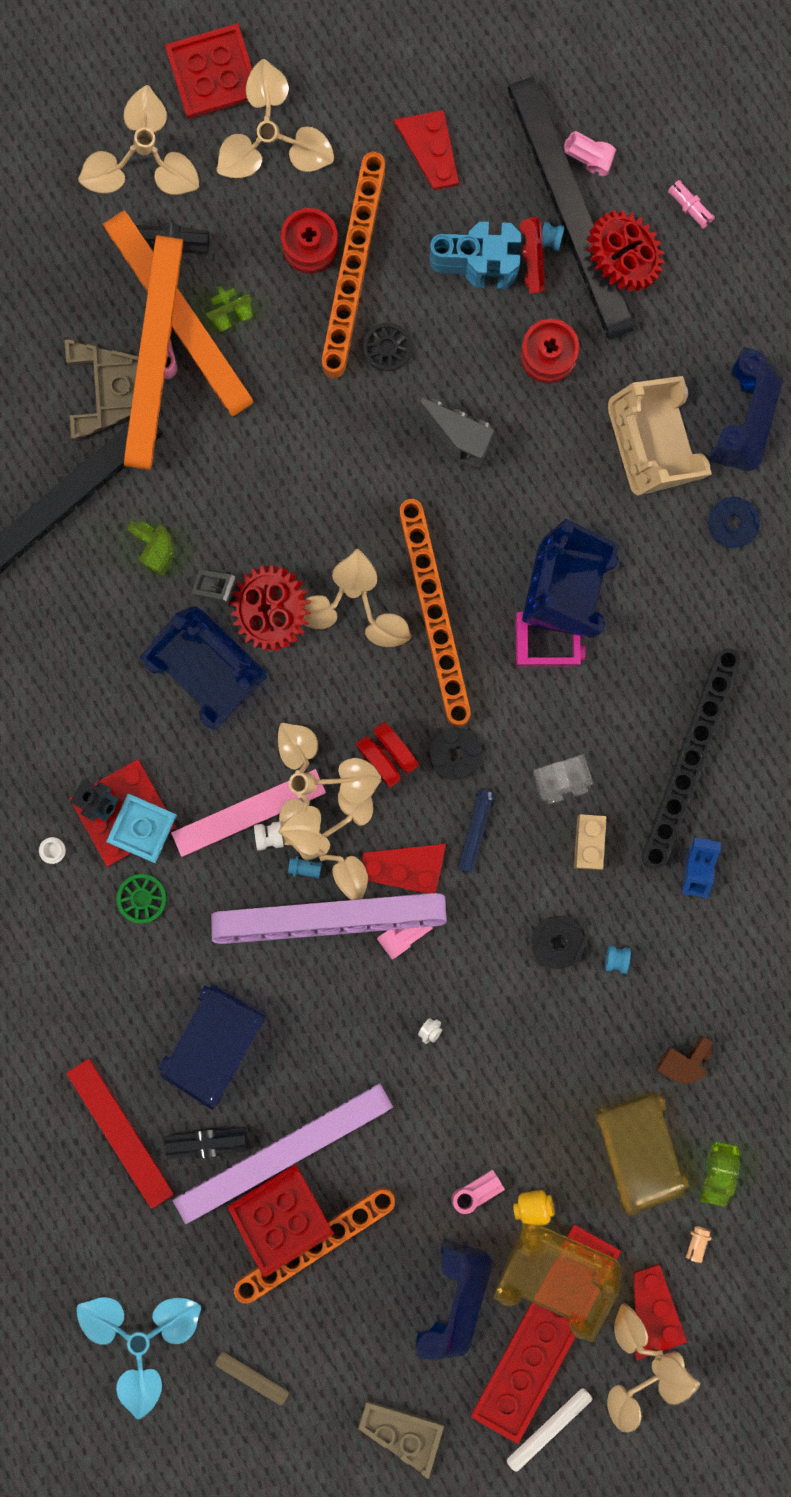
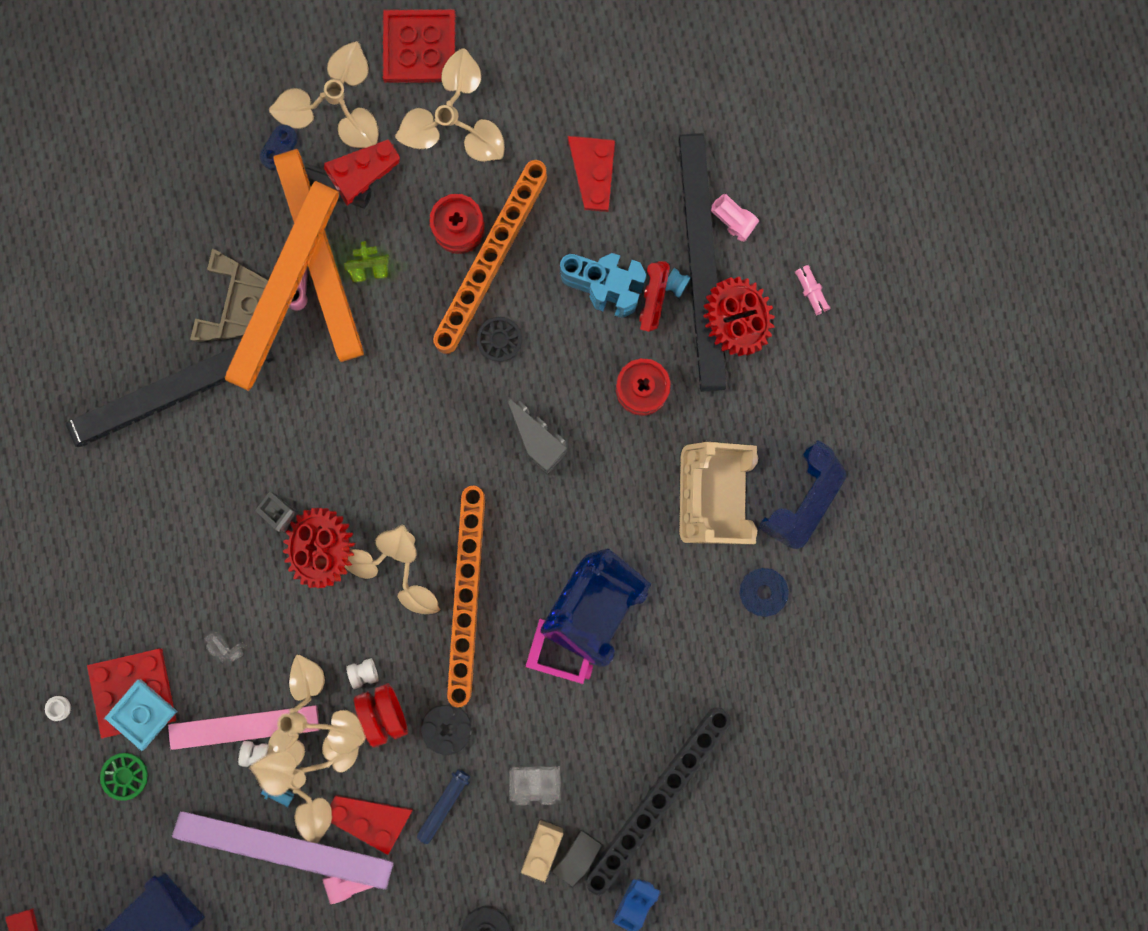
camera: 20 degrees right, 0 degrees up
(94, 800) = (103, 678): black brick -> none
(97, 216) = (278, 145): none -> clear blue plate
(159, 548) = (237, 463): clear neon green brick -> none
(194, 212) = (359, 169): none -> red wing
(197, 739) = (218, 647): none -> clear bracket
(204, 664) = (247, 580): clear blue windscreen -> none
(353, 722) = (362, 673): none -> white wheel
(626, 843) = (577, 858): none -> dark grey slope

